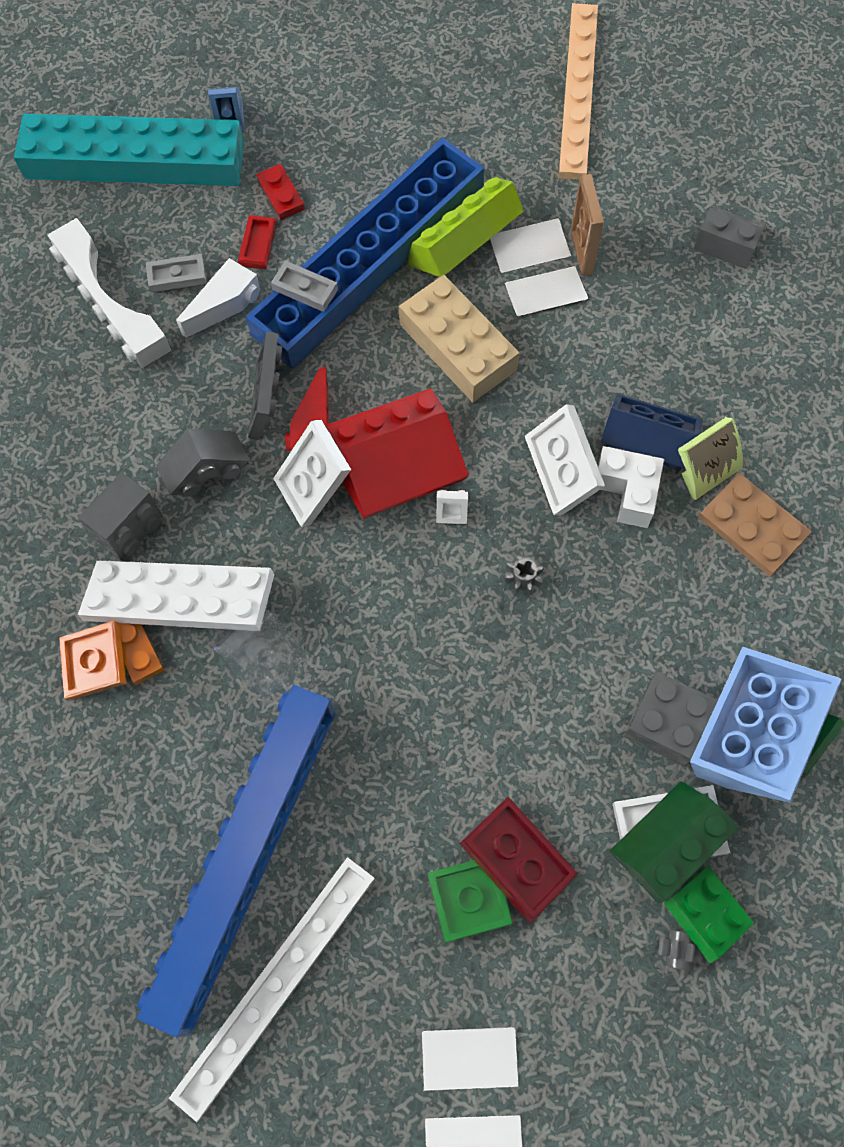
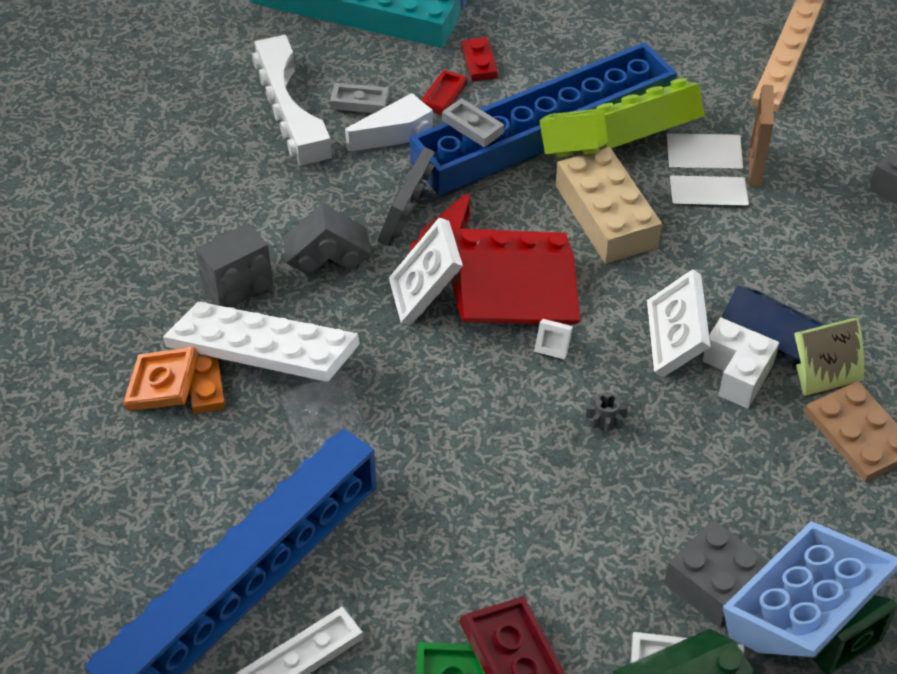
camera: 15 degrees right, 20 degrees down
(407, 270) = (574, 132): none -> lime brick

